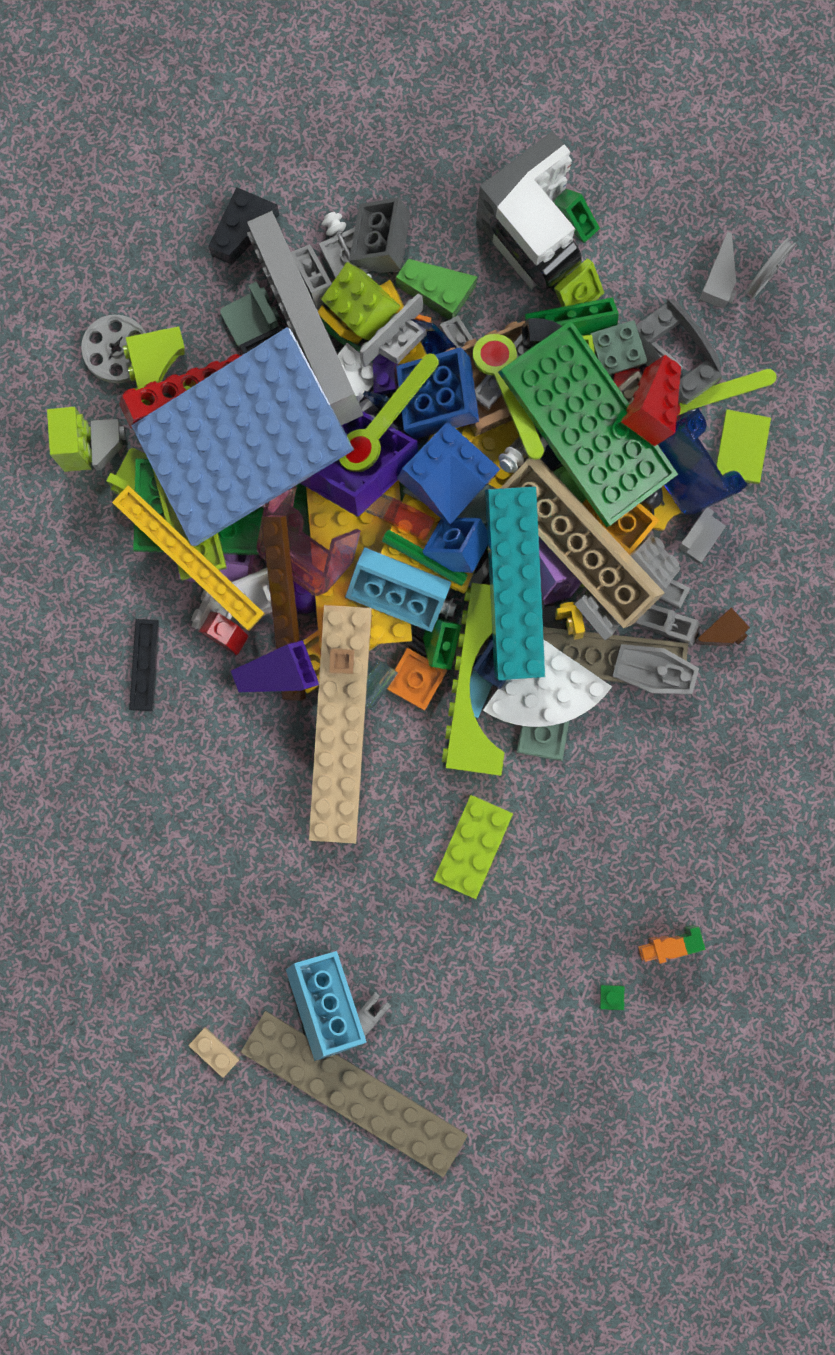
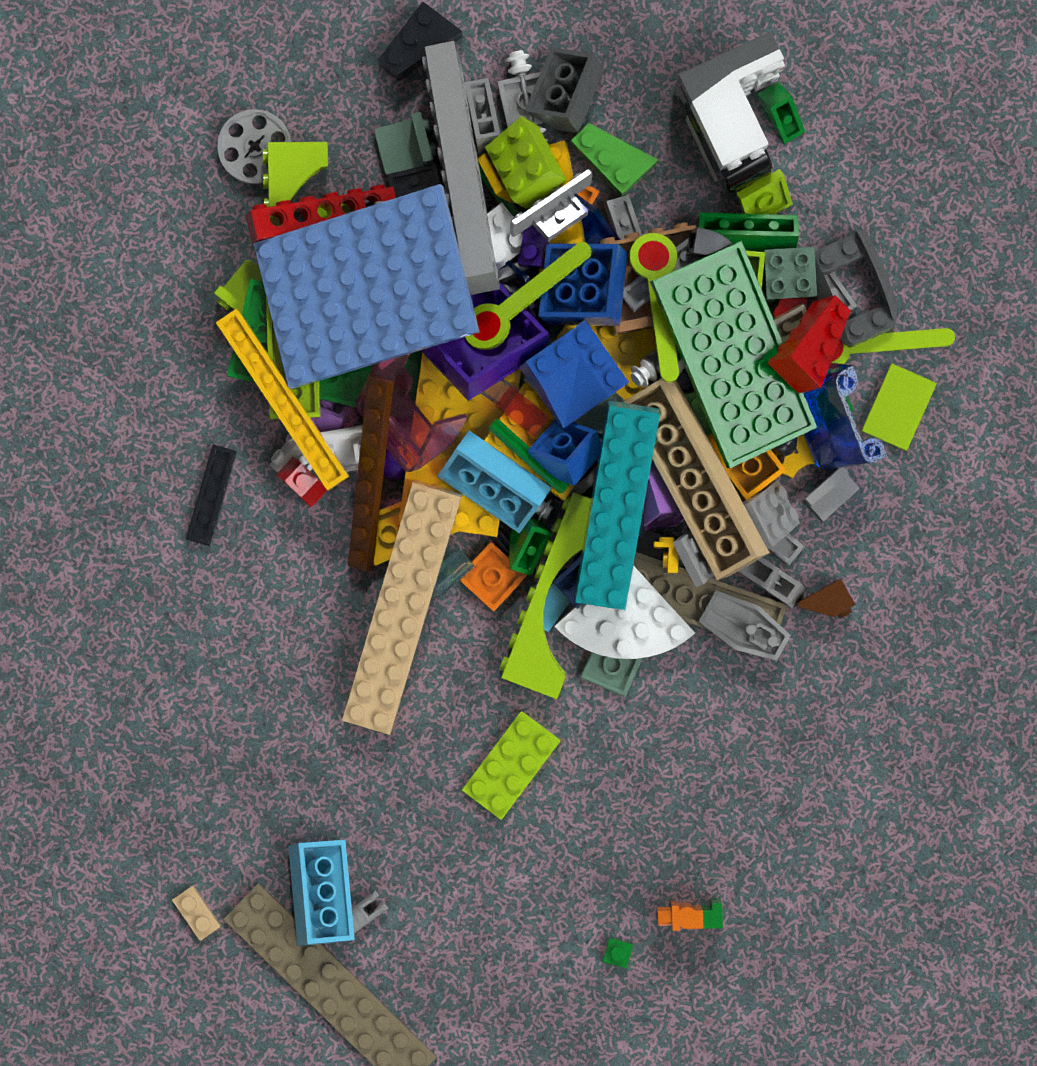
camera: 15 degrees right, 5 degrees up
(69, 439) = (185, 240): lime brick -> none
(106, 441) = (222, 246): light grey slope -> none
(279, 670) = (350, 538): dark purple slope -> none
(341, 661) = (417, 546): medium nougat plate -> none
(722, 277) = (922, 218): light grey slope -> none
(770, 268) = (974, 223): light grey wedge -> none

